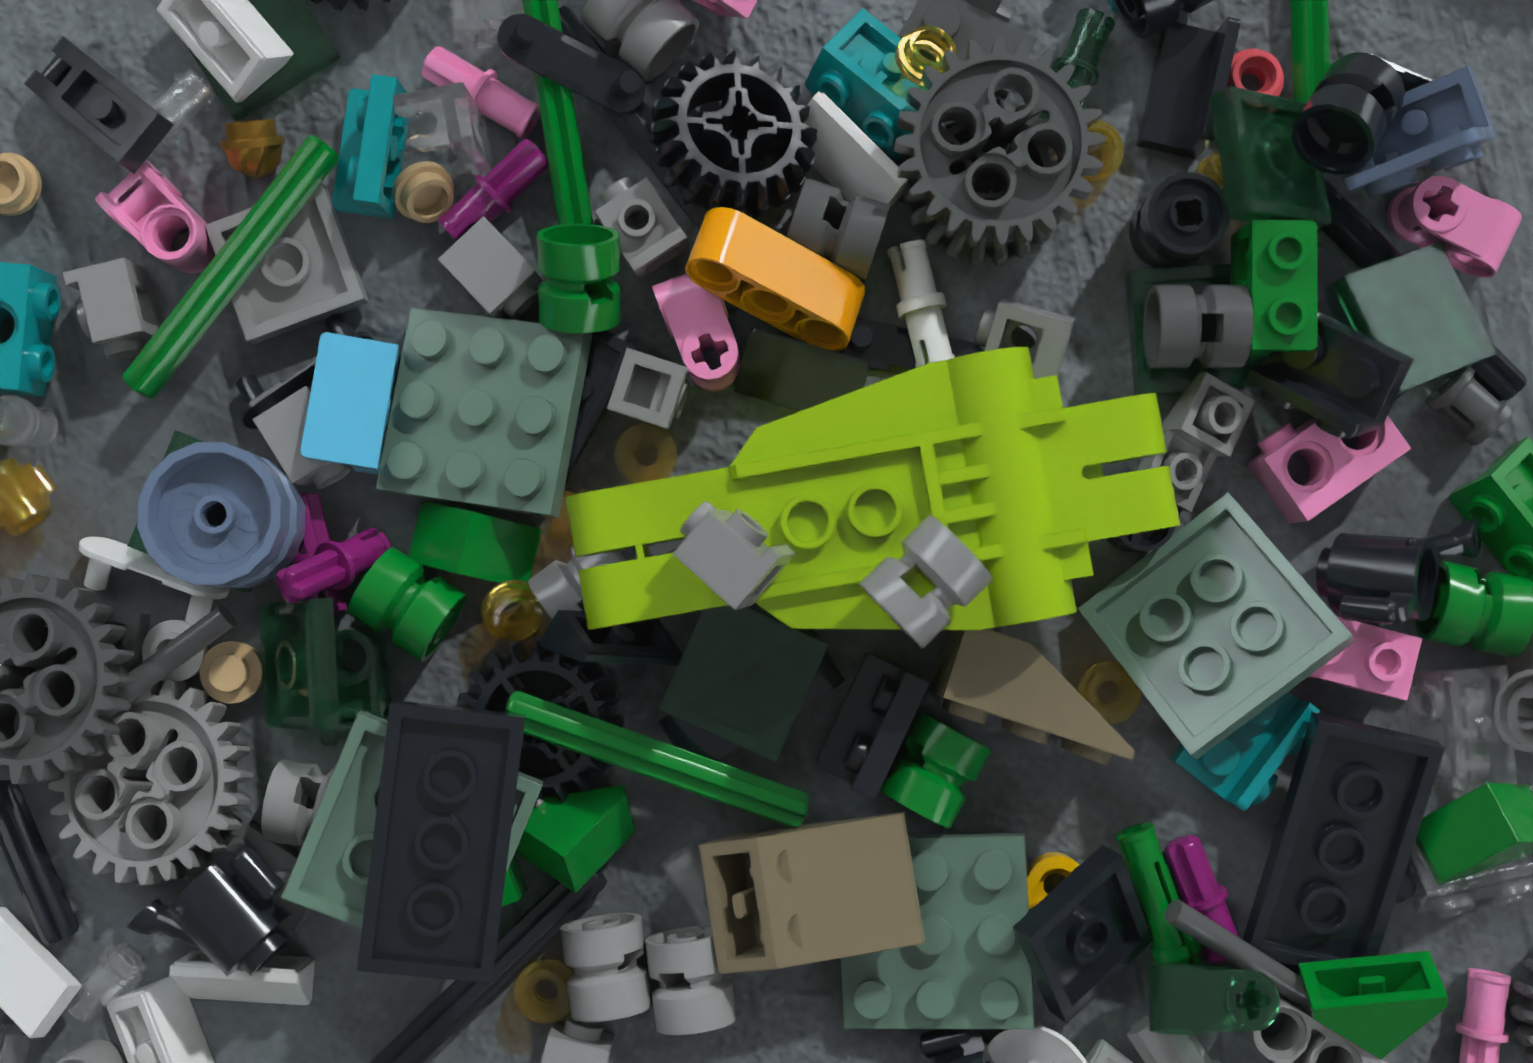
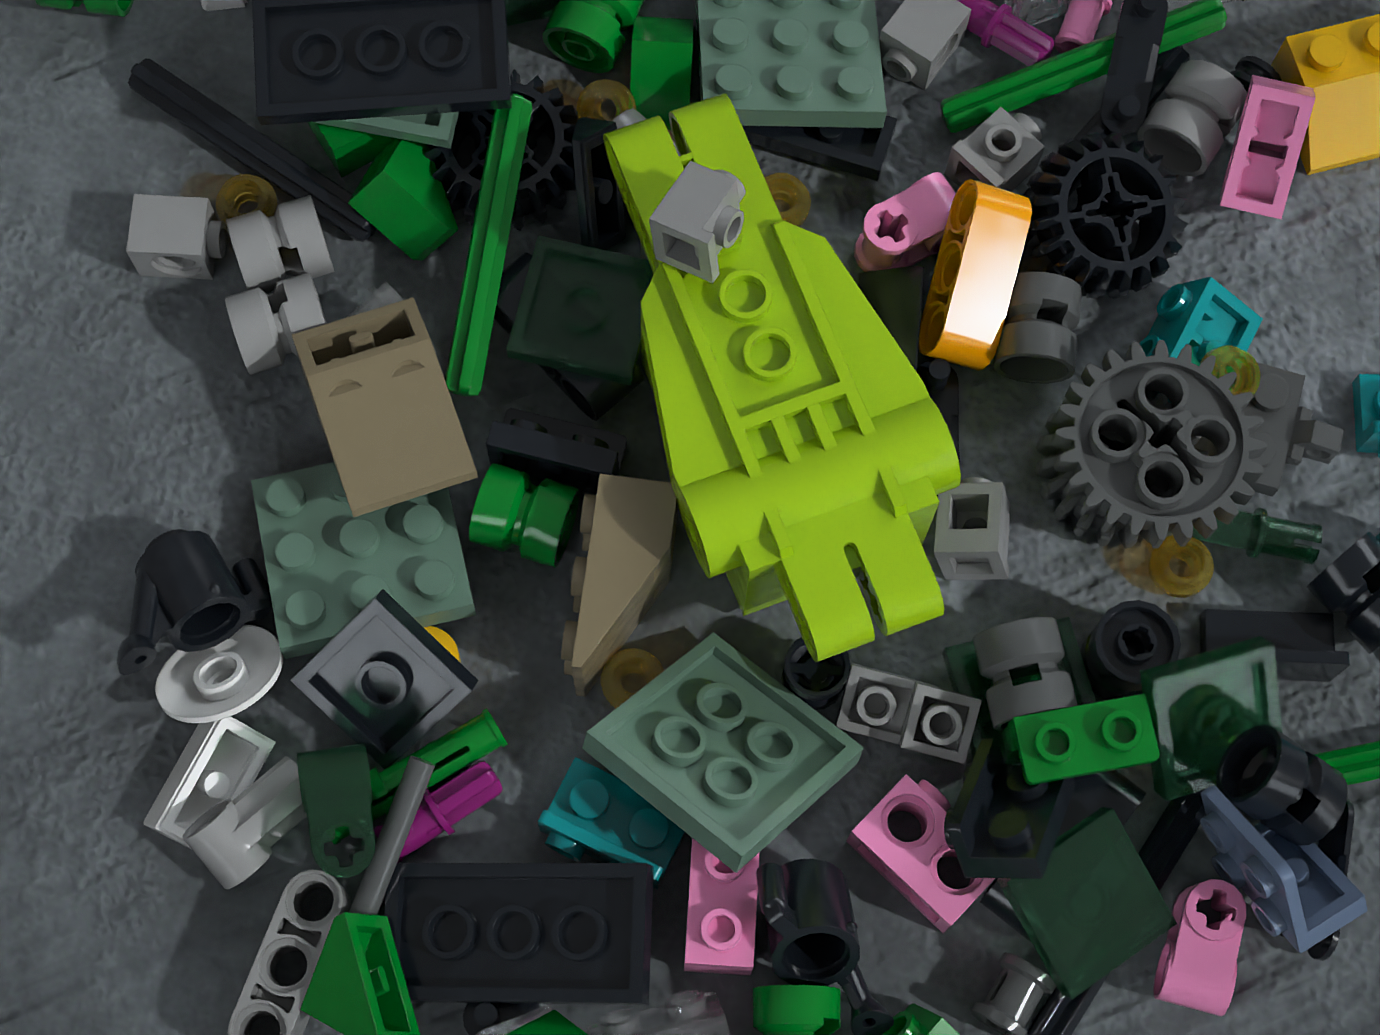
camera: 75 degrees right, 15 degrees down
(579, 286) = (953, 93): green wheel -> none
(649, 389) = (841, 196): light grey brick -> none
(850, 157) = (1117, 324): white slope -> none
(920, 302) = (989, 423): white pin -> none
(943, 563) = (709, 389): light grey wheel -> none
(1262, 66) = (1312, 703): coral plate -> none

